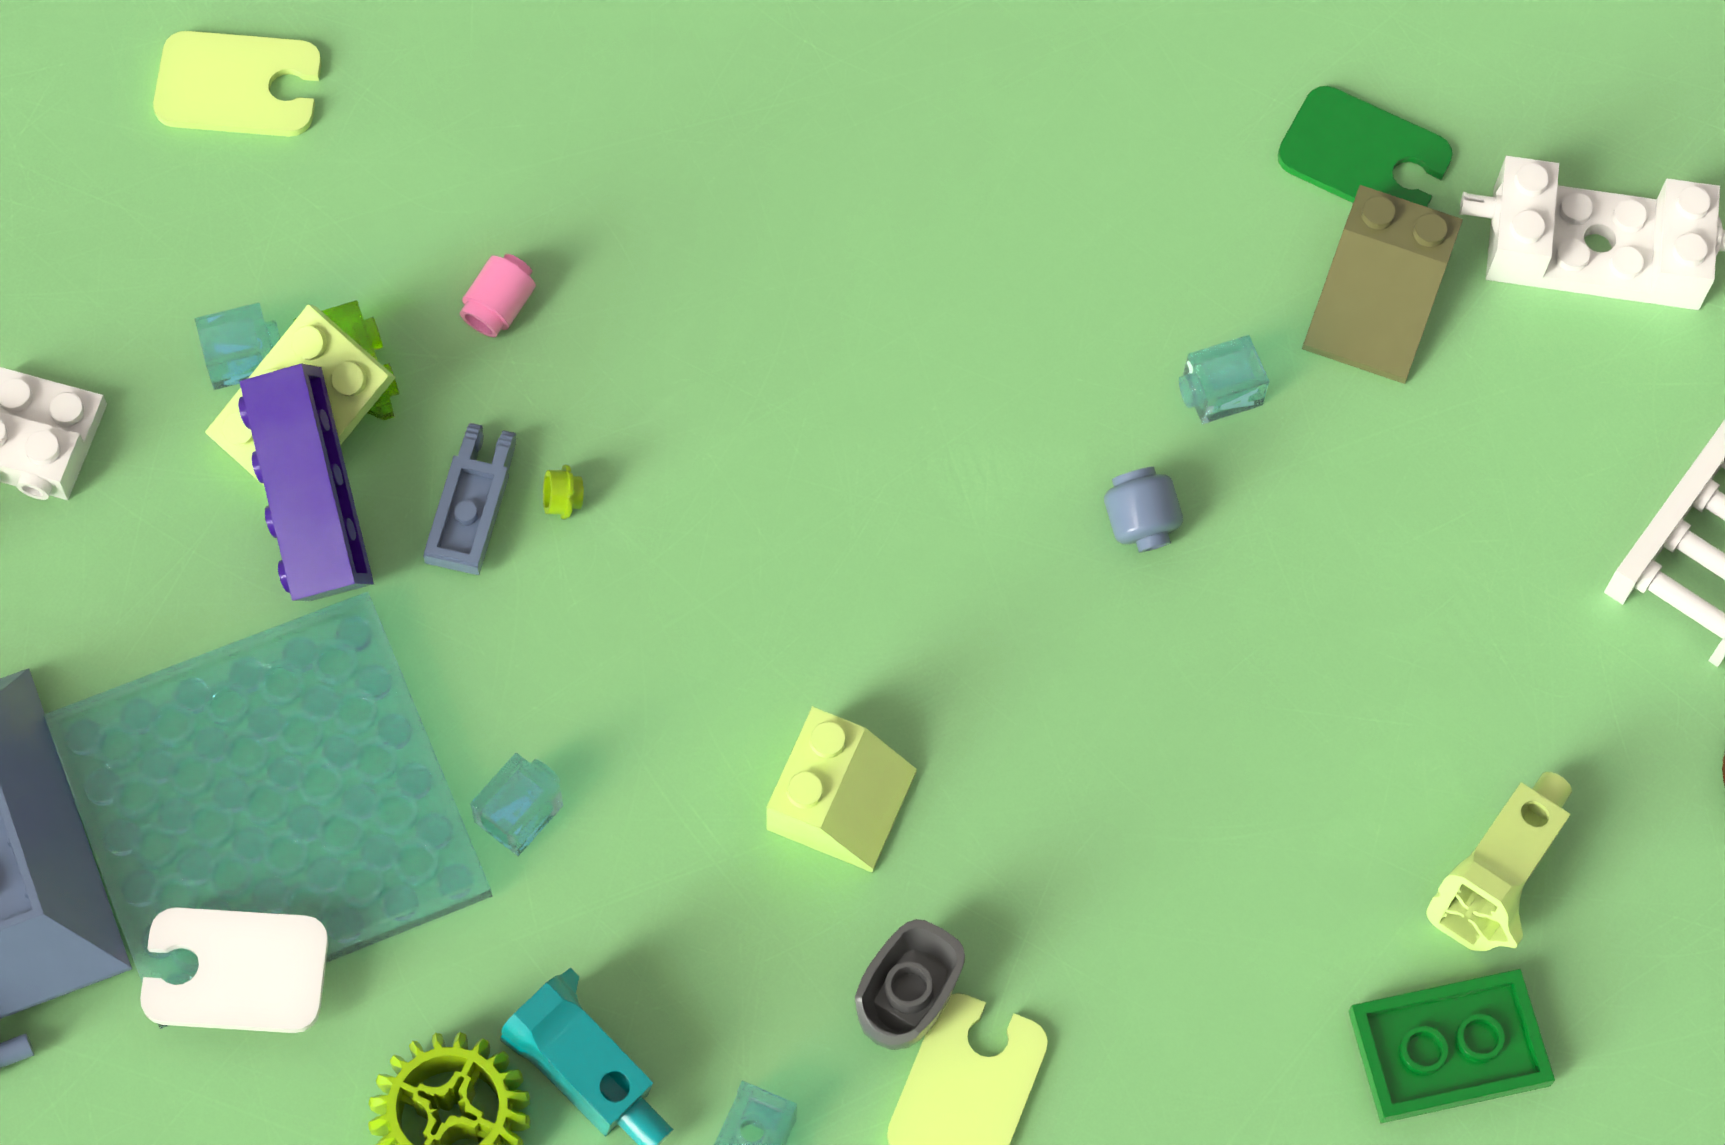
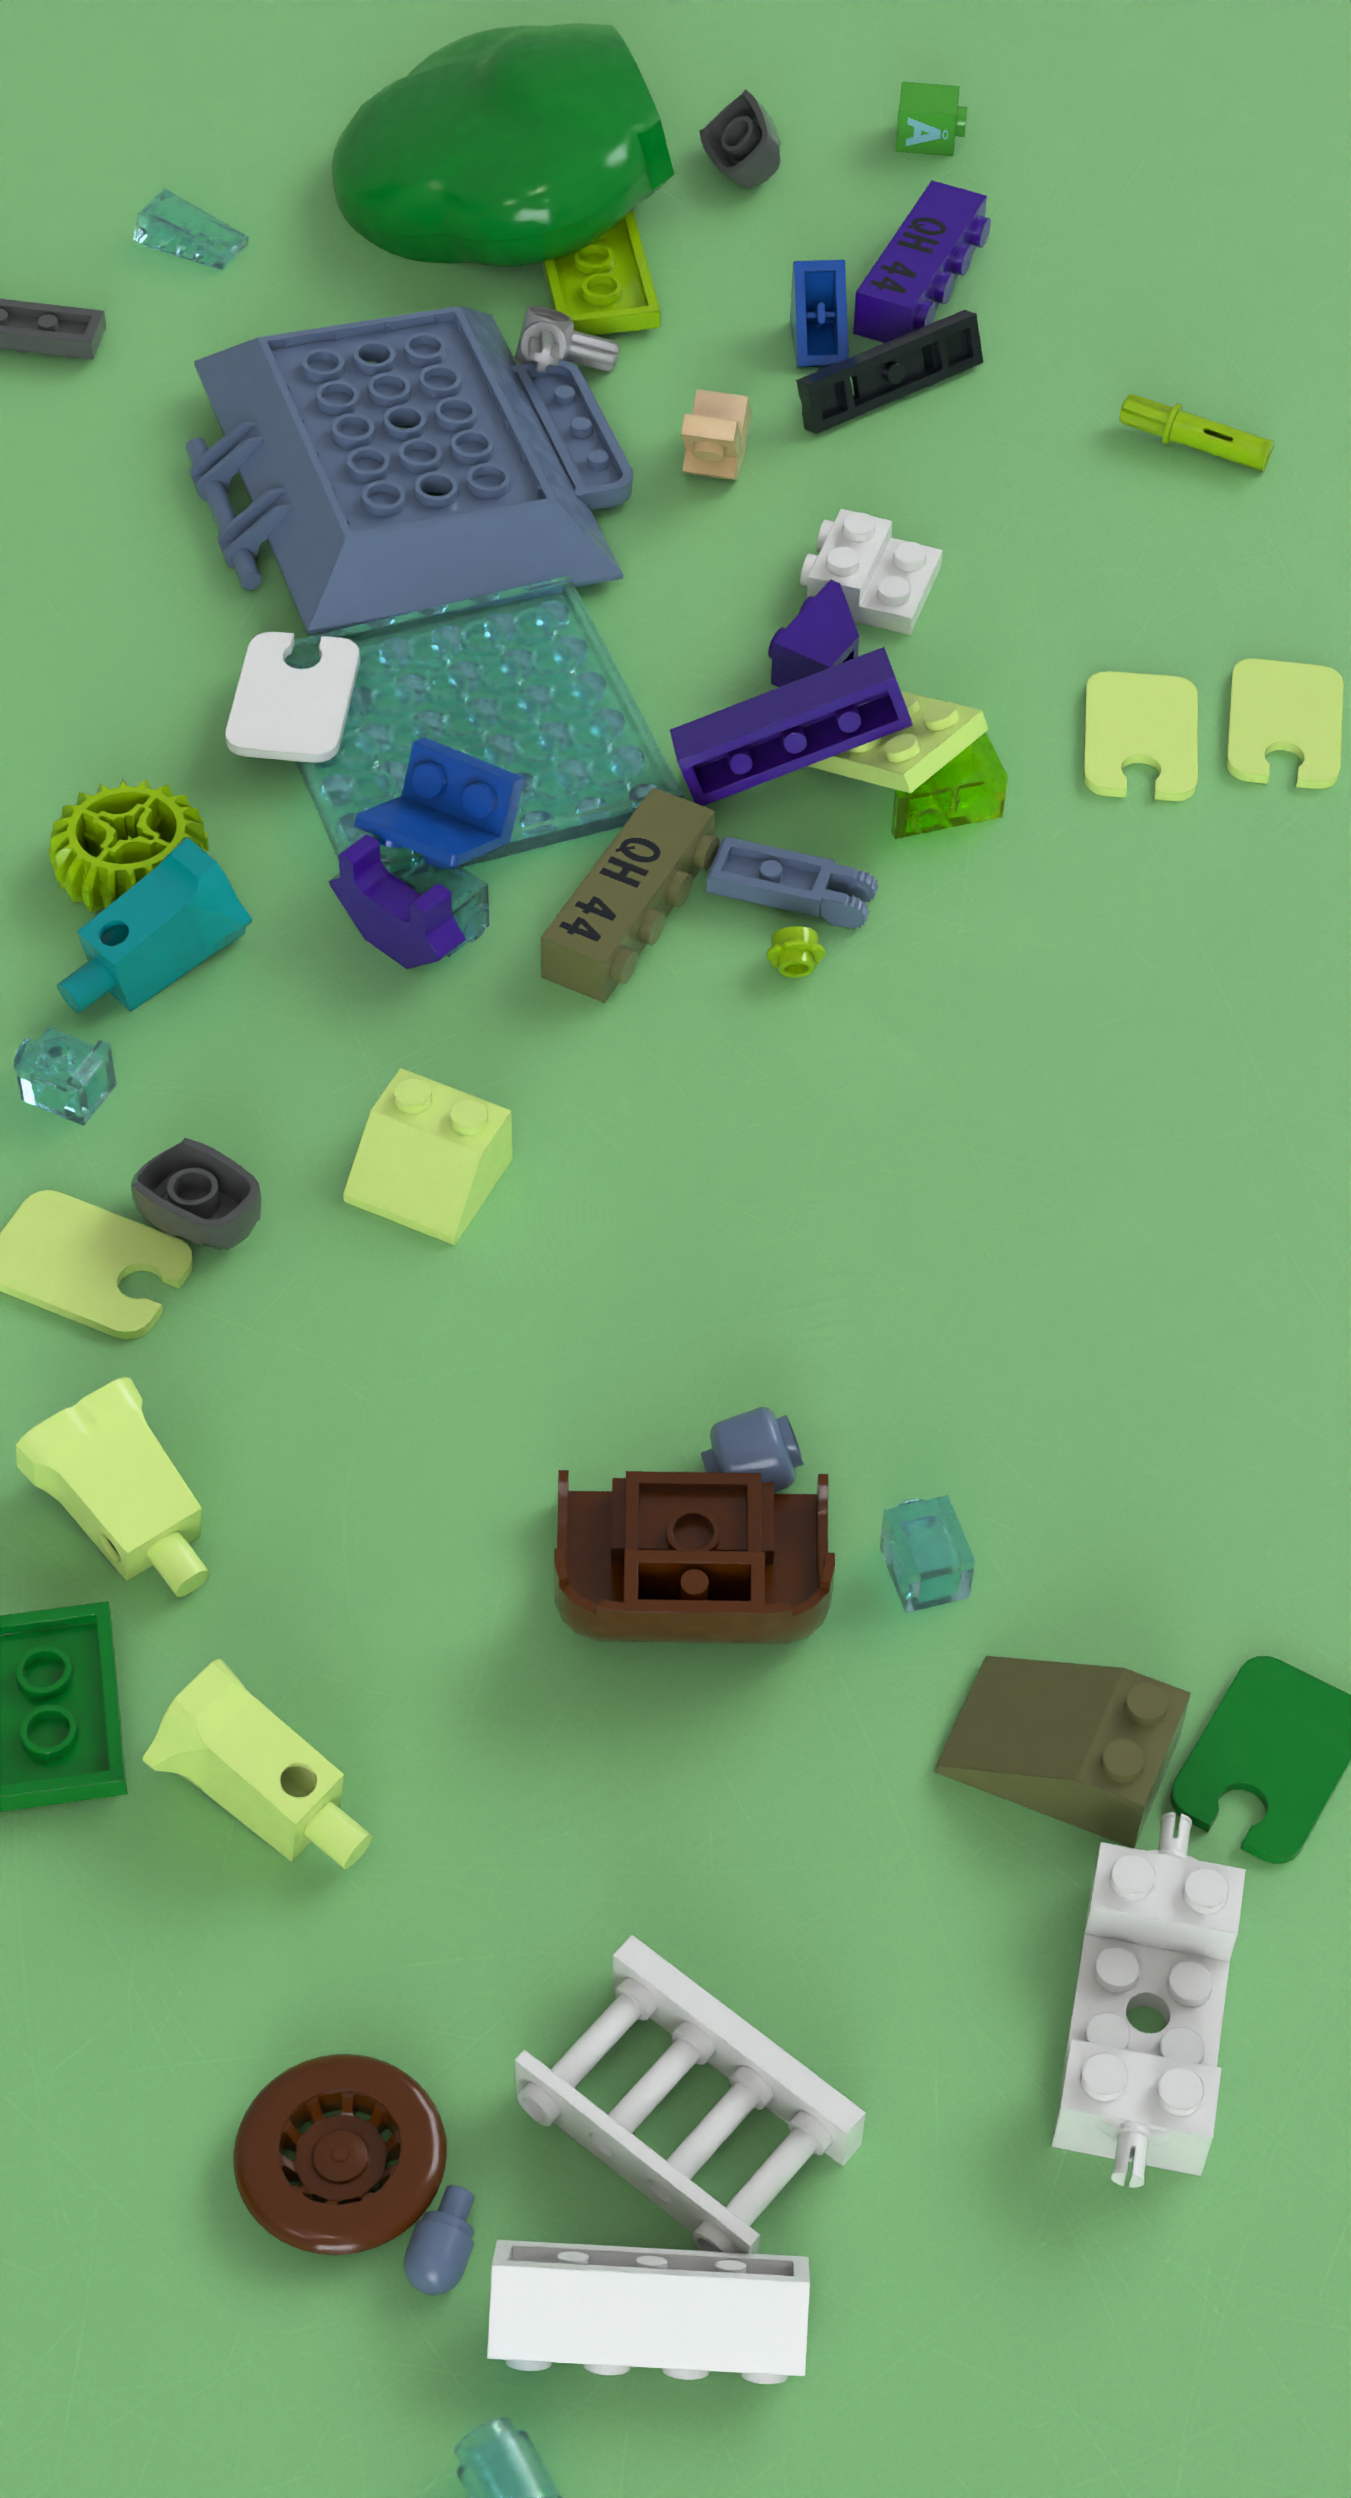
camera: 95 degrees right, 15 degrees down
(149, 472) = (816, 638): none -> dark purple slope
(235, 343) = (969, 686): clear light blue brick -> none
(244, 201) = (1143, 722): none -> yellowish green piece
(436, 793) = (447, 807): none -> blue bracket
(497, 294) = (1030, 904): bright pink brick -> none
(498, 634) = (629, 895): none -> olive brick
(545, 839) = (392, 914): none -> dark purple piece
(1234, 1010) = (118, 1485): none -> yellowish green piece
(1267, 548) = (693, 1559): none -> reddish brown piece

